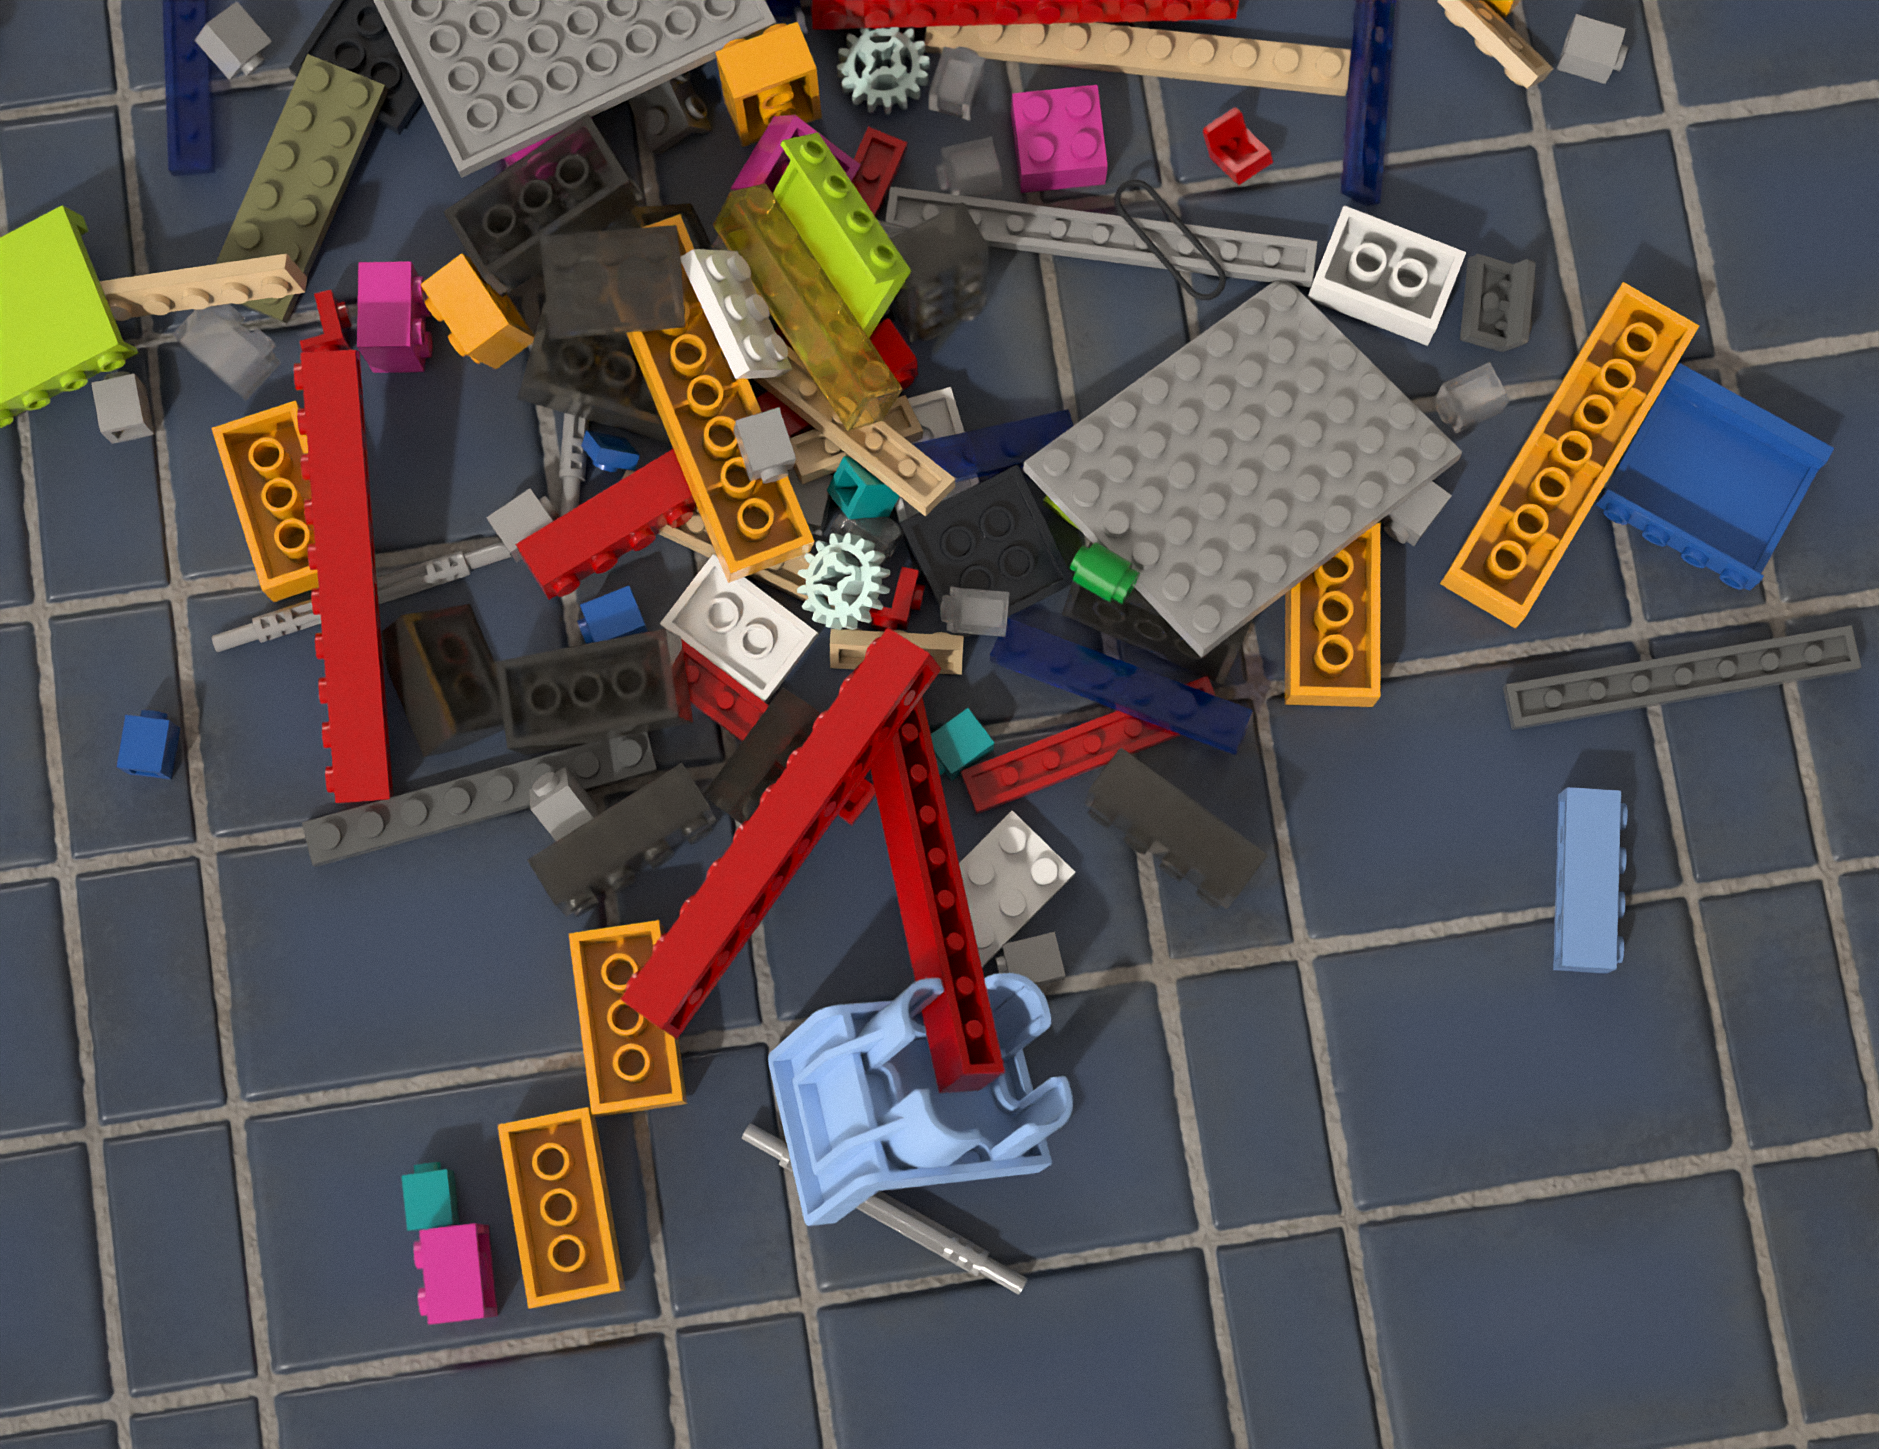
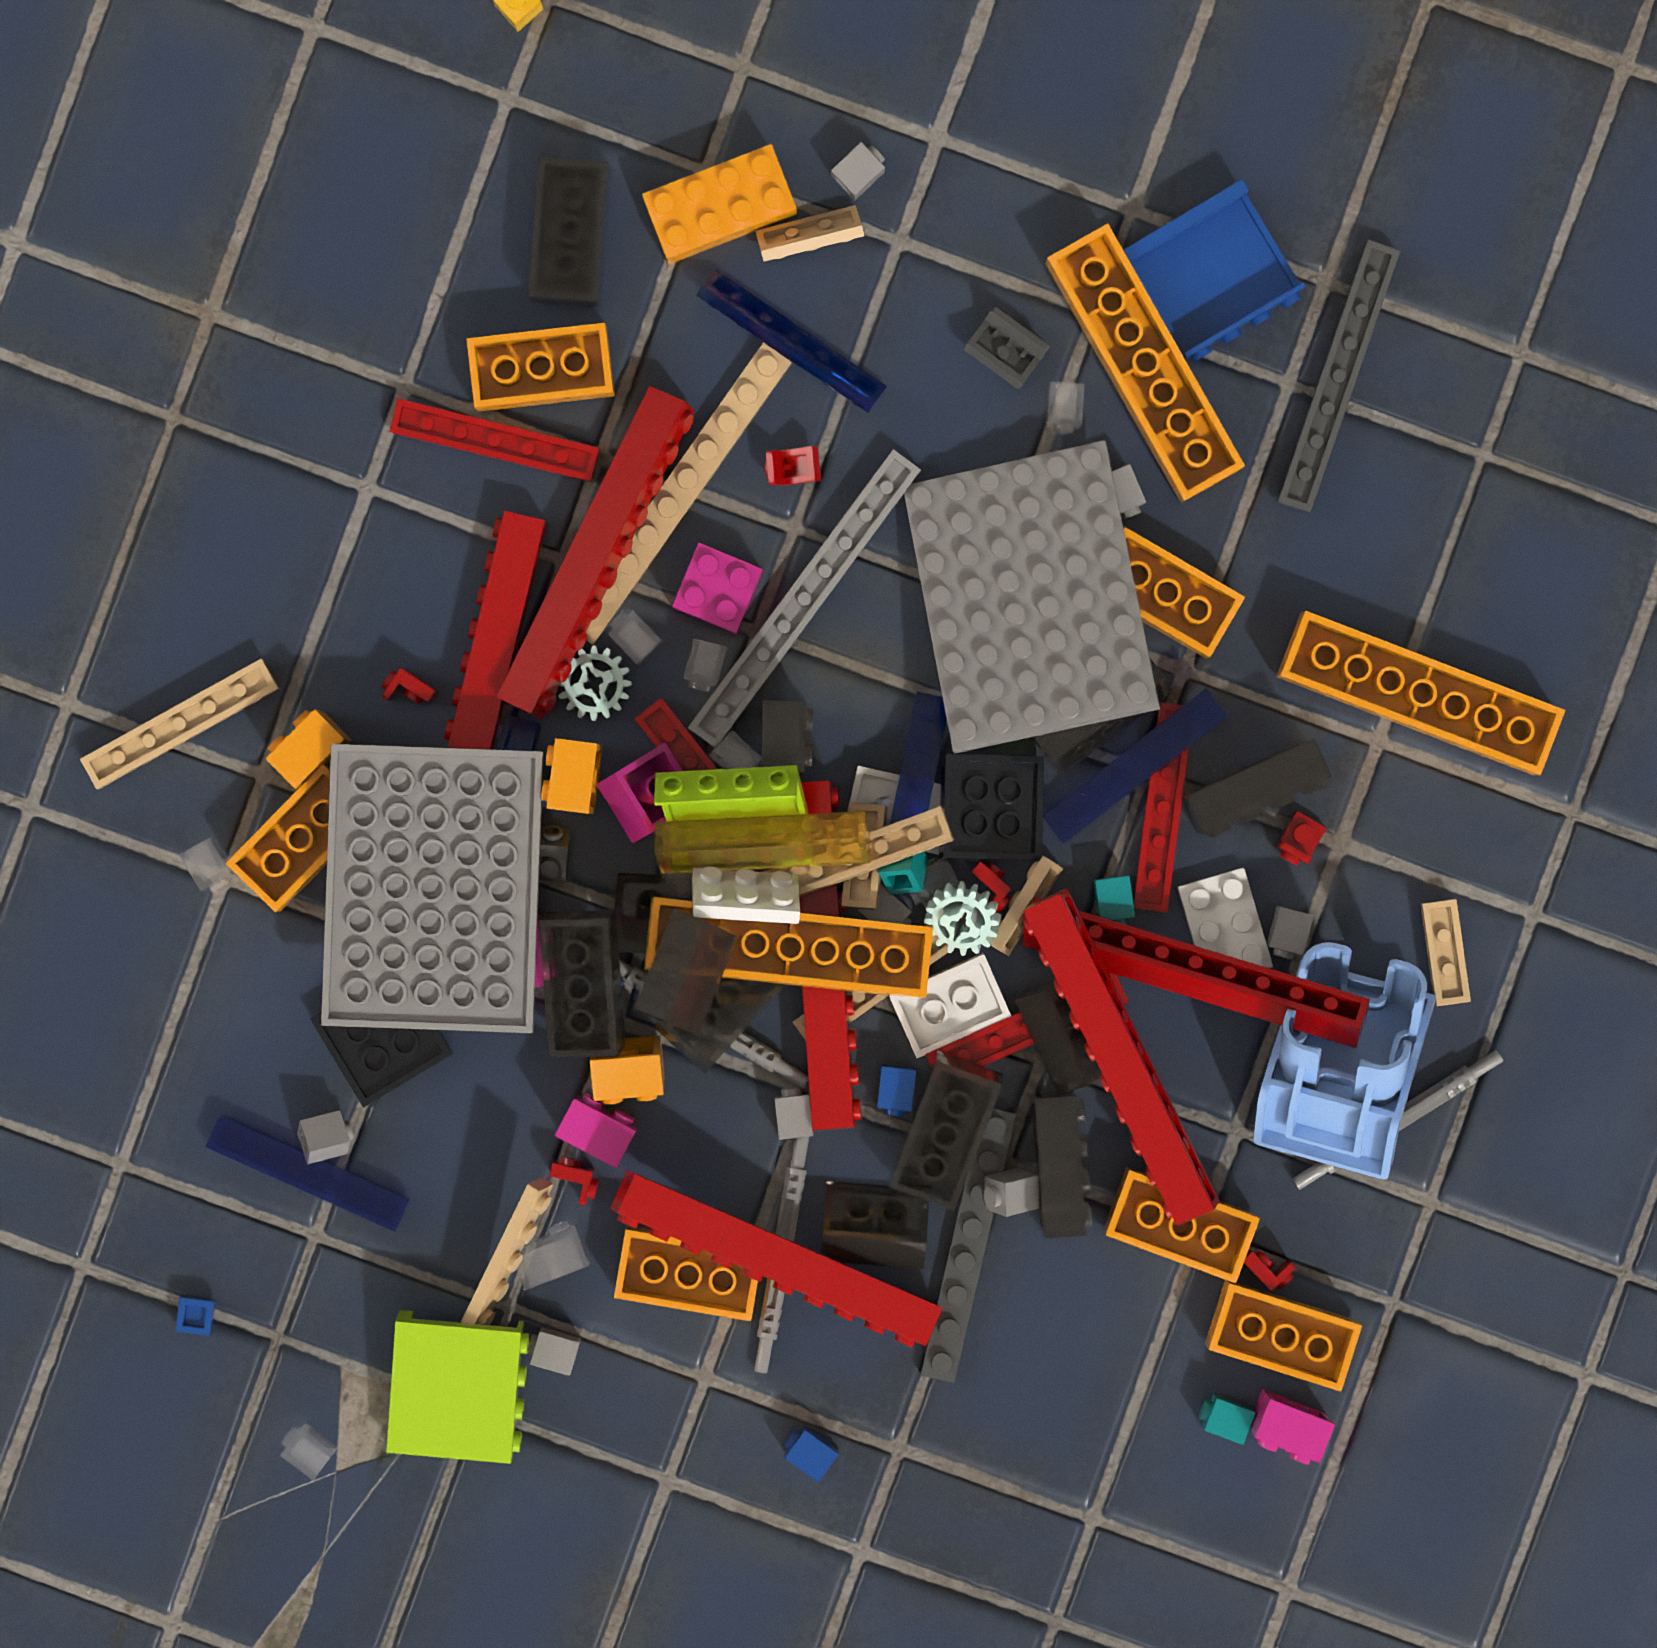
camera: 60 degrees left, 10 degrees up
(304, 172) = (452, 1141): olive plate -> none
(610, 451) = (775, 1027): blue plate -> none
(628, 1141) = (1261, 1265): none -> red bracket
(765, 446) = (854, 927): light grey brick -> none
(975, 611) = (1032, 838): clear brick -> none
(1104, 573) = (1067, 743): green brick -> none
(1107, 1156) = (1445, 952): none -> tan plate
(1142, 919) = (1300, 839): none -> red bracket
(1182, 227) = (834, 538): black piece -> none
(1385, 960) = (1420, 693): none -> light orange brick
(1386, 275) = (946, 416): white brick -> none
(1588, 880) = (1440, 523): medium blue brick -> none

